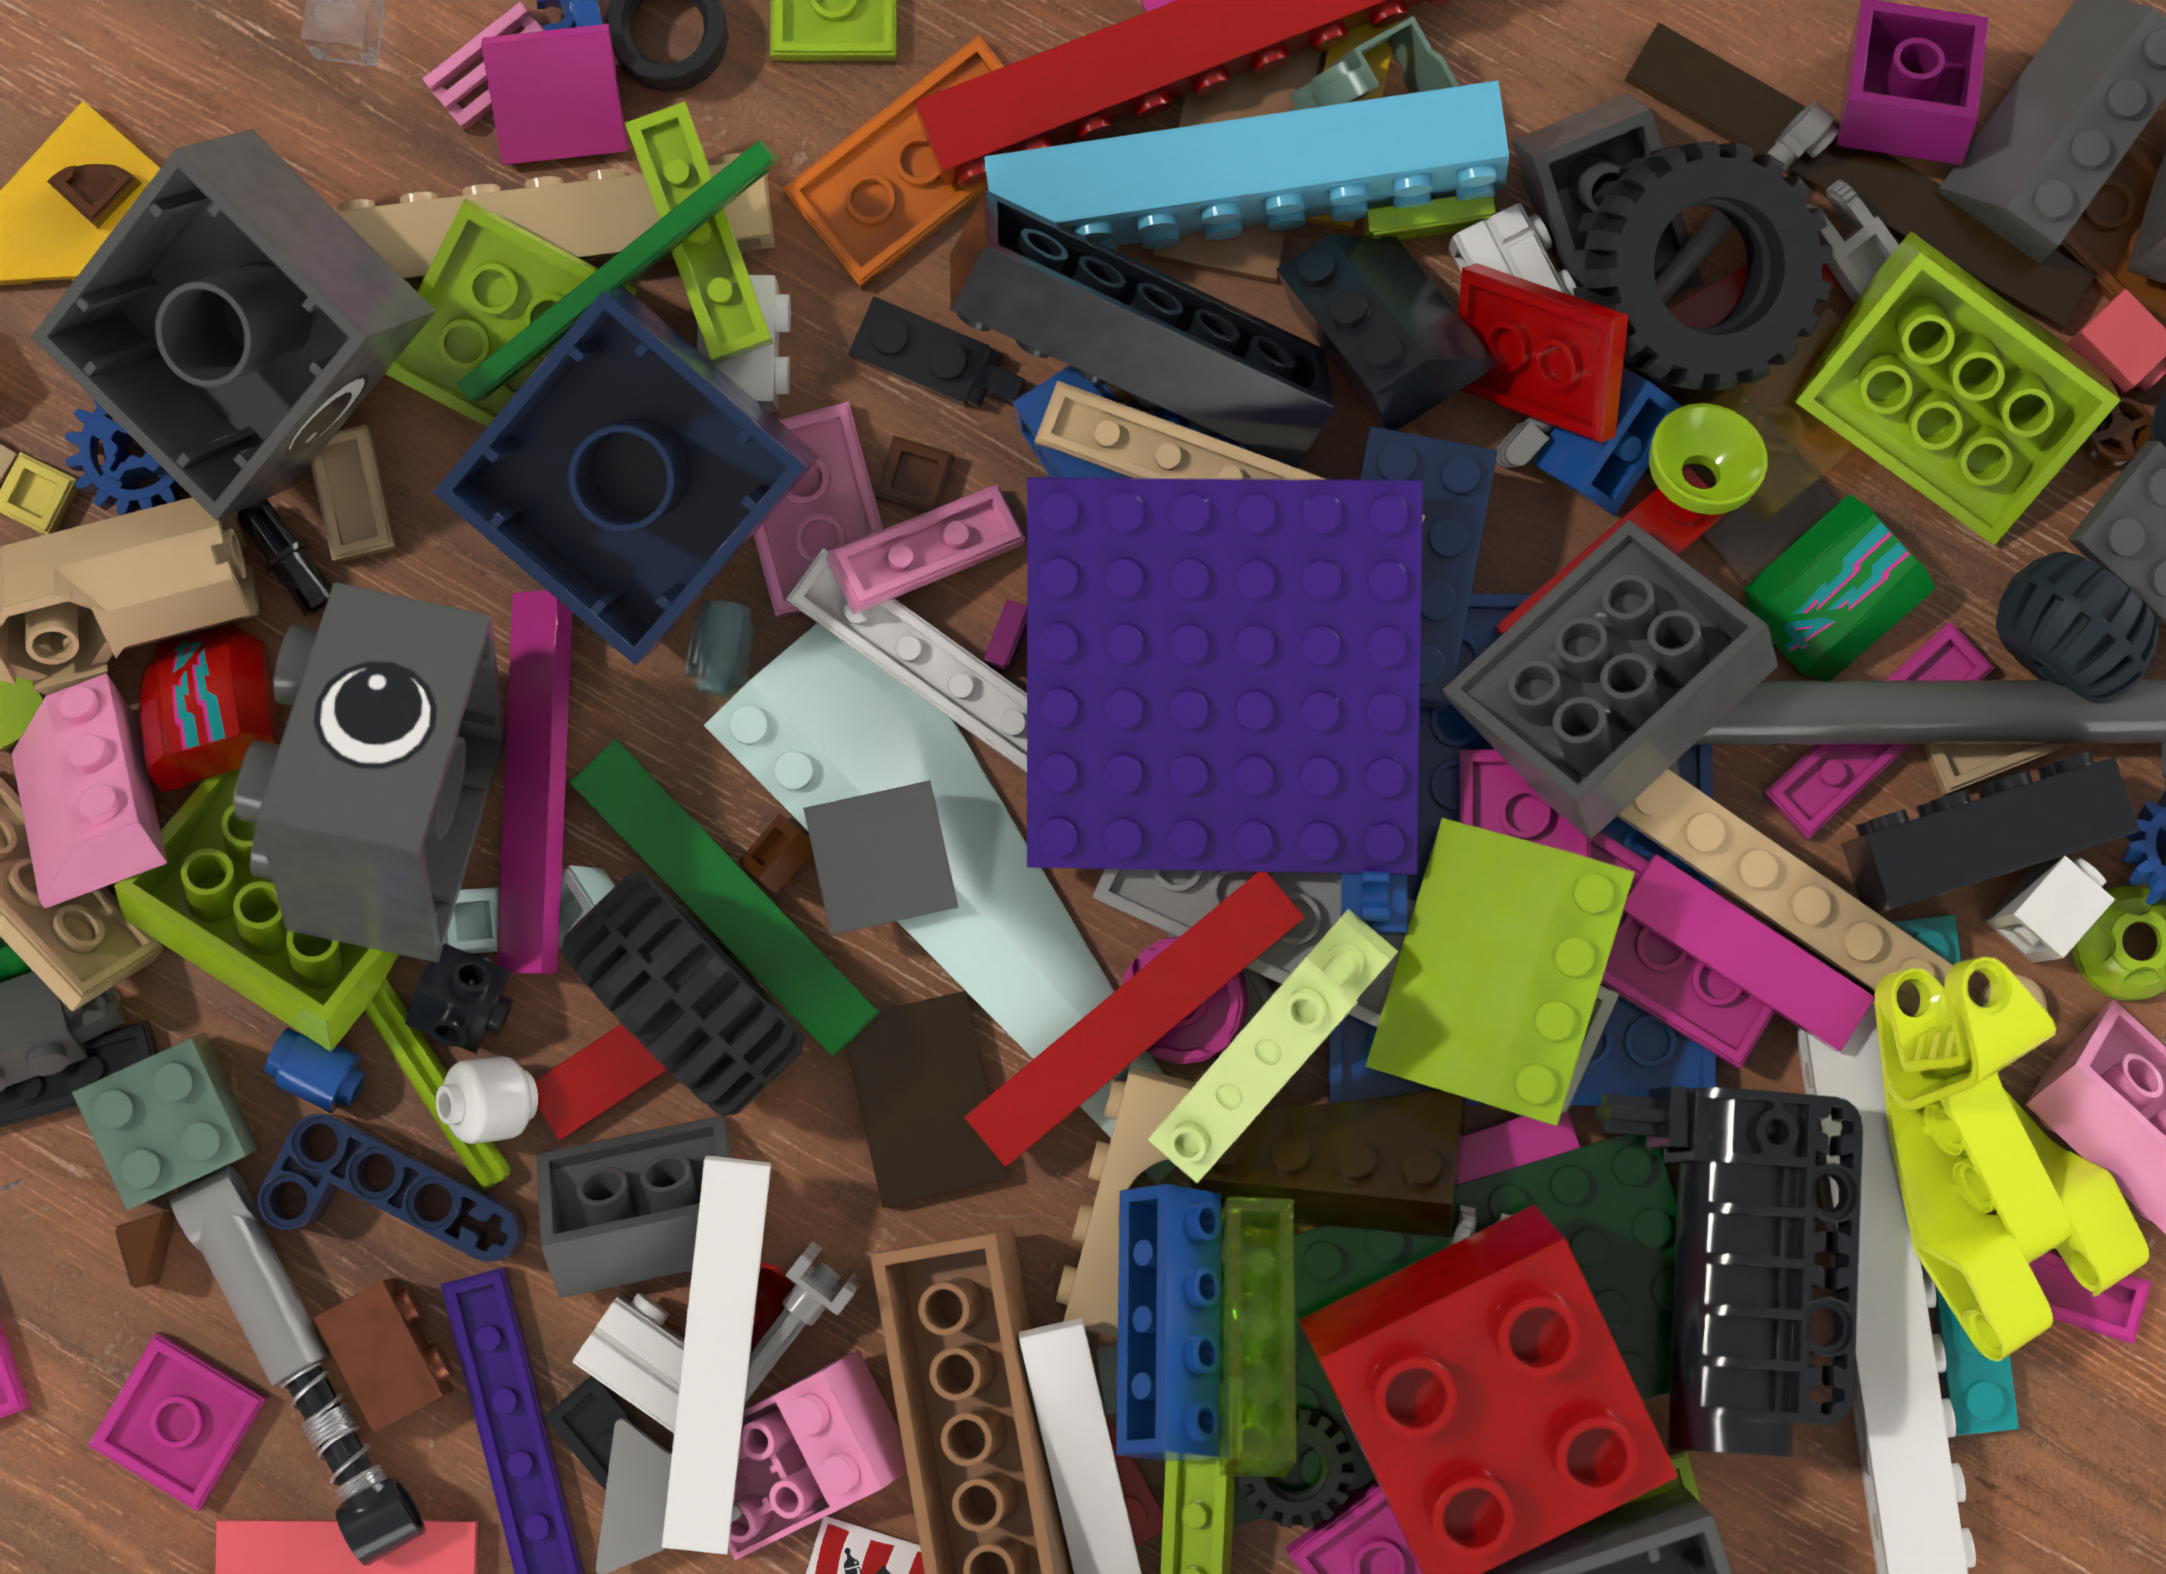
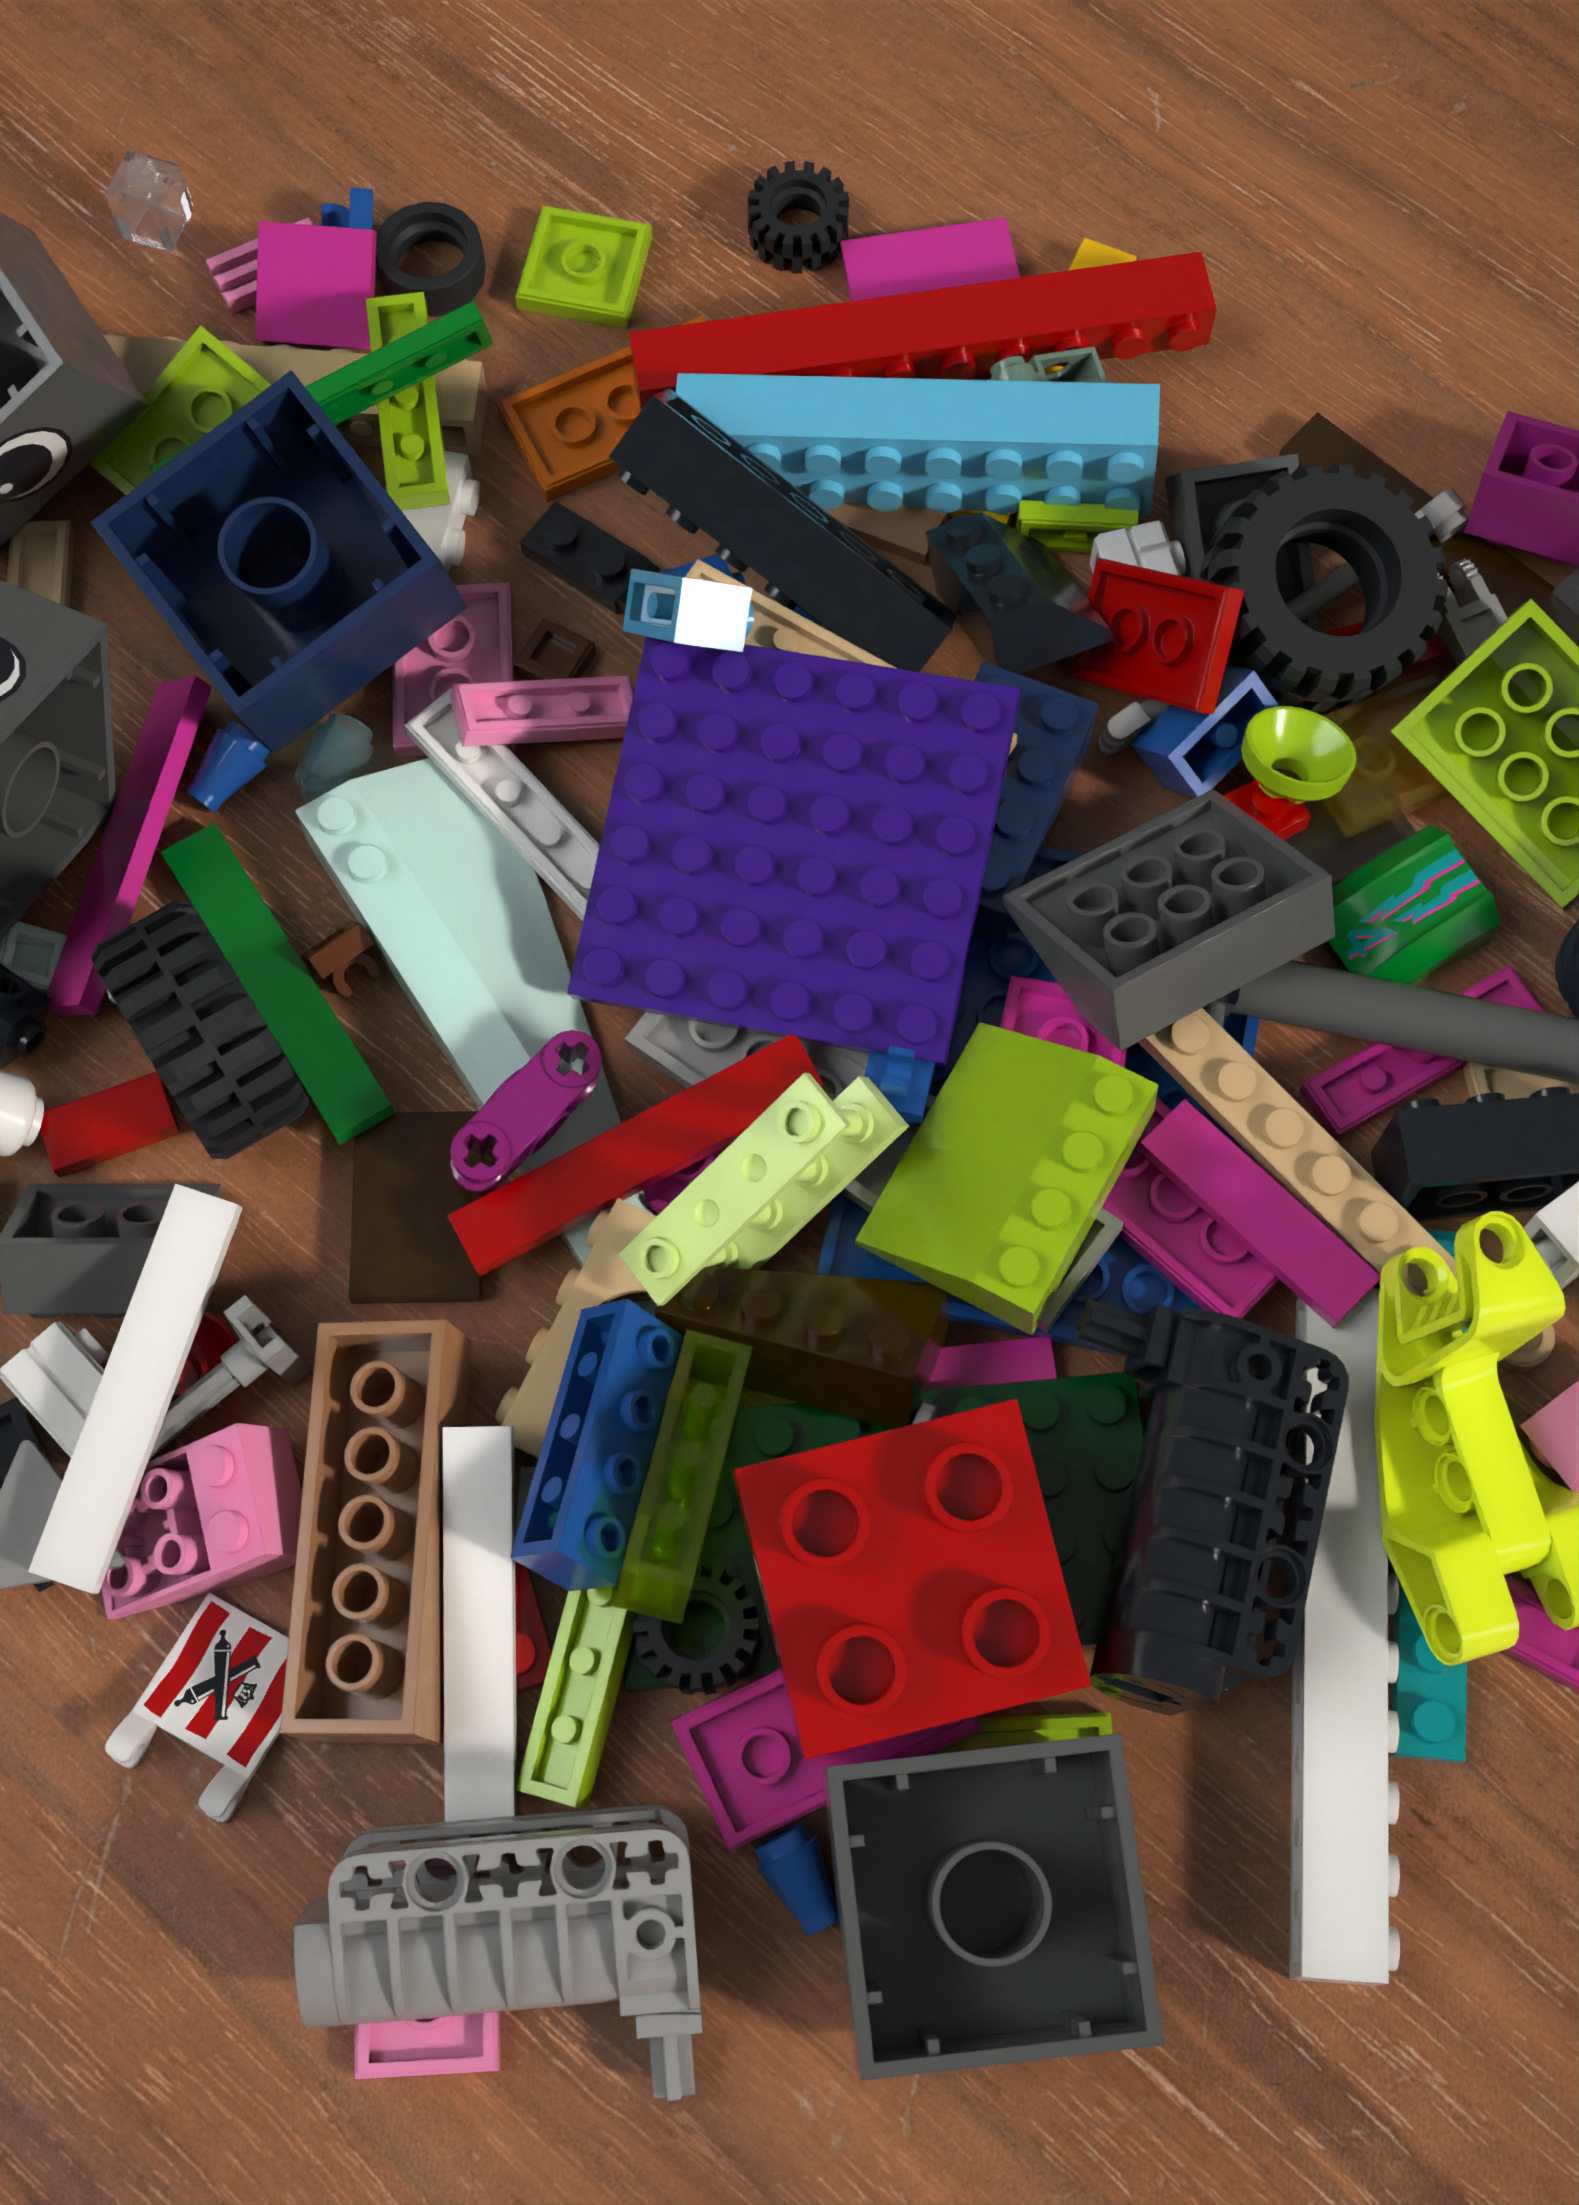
camera: 10 degrees right, 15 degrees down
(607, 682) = (228, 765): none -> blue cone
(880, 857) = (428, 955): dark grey tile -> none
(1007, 636) = (594, 804): magenta tile -> none
(1018, 1002) = (525, 1111): none -> magenta piece
(1065, 456) = (688, 610): none -> slope

